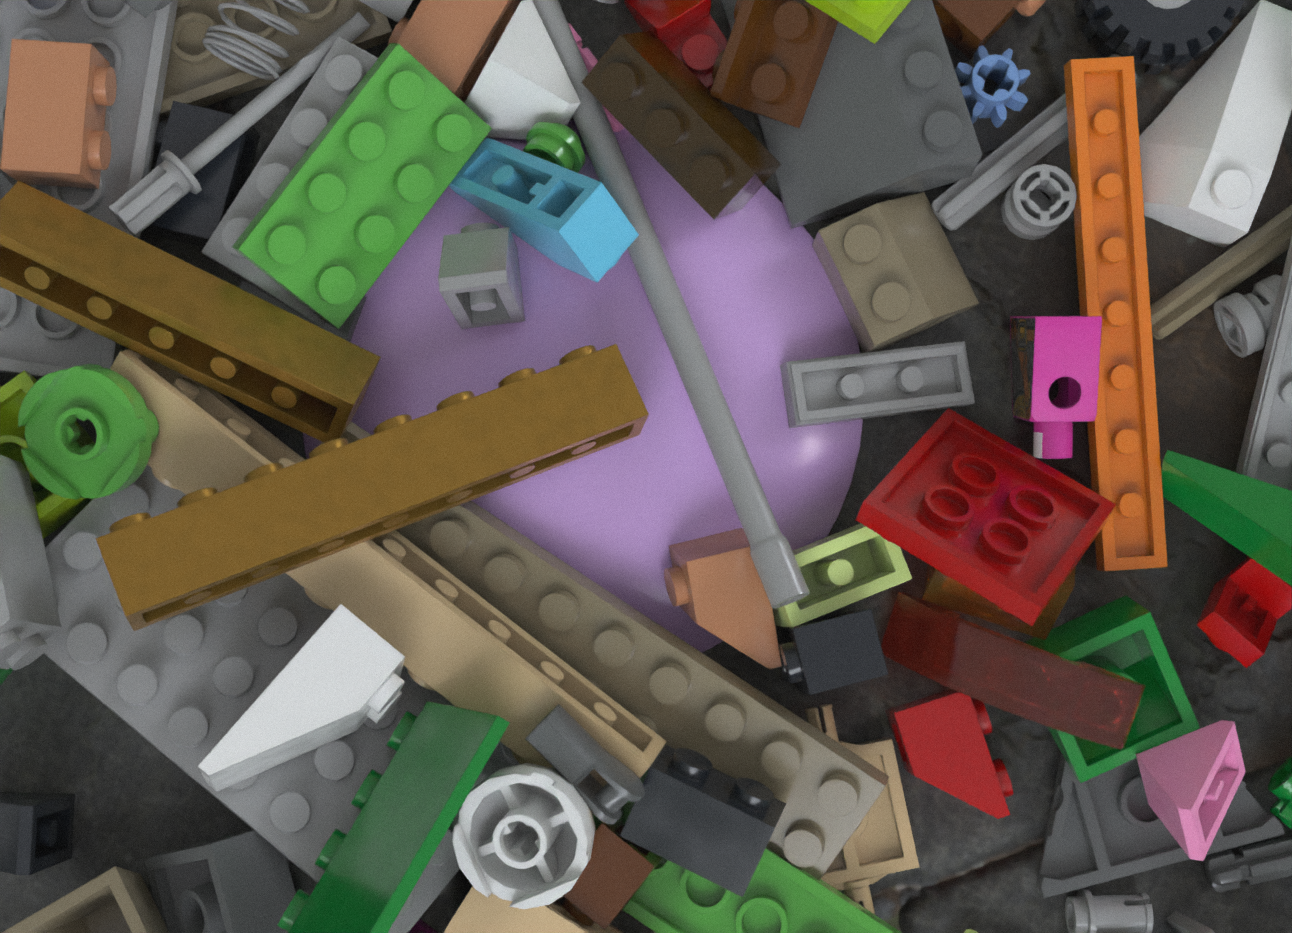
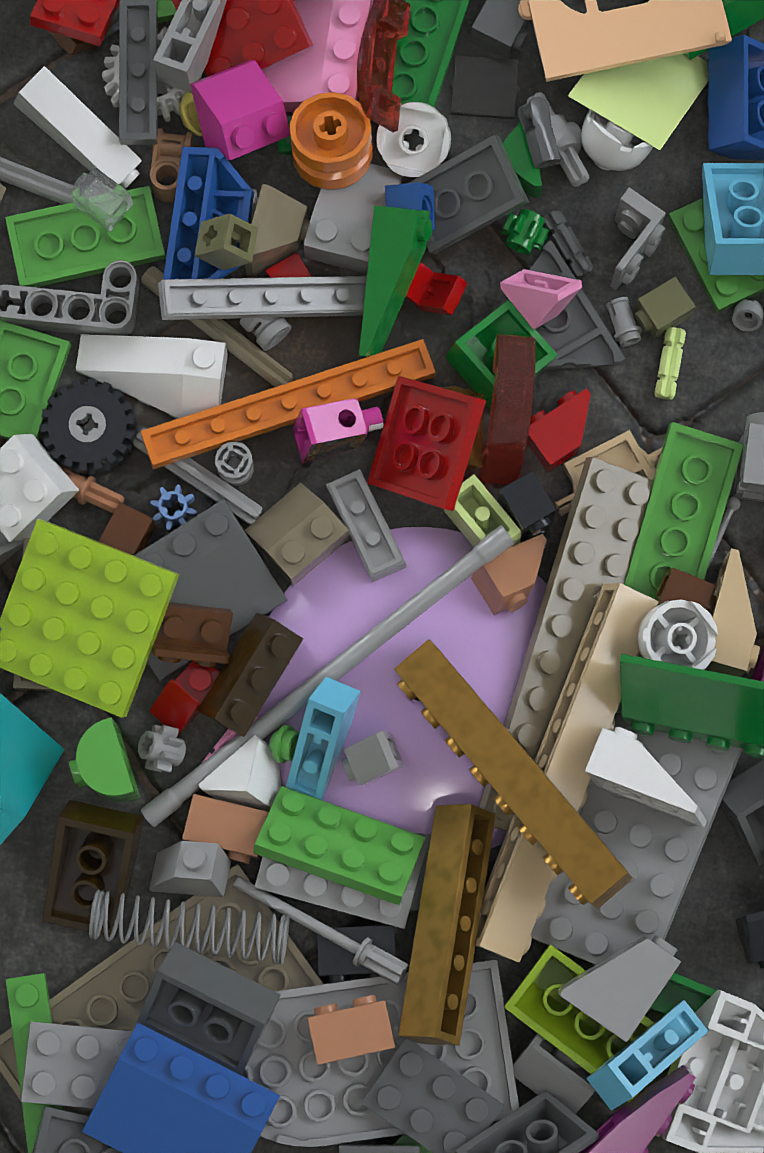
camera: 105 degrees left, 5 degrees down
(121, 423) = (508, 953): bright green plate -> none
(575, 755) = (627, 622): dark grey bar -> none
(704, 818) = (639, 548): black brick -> none

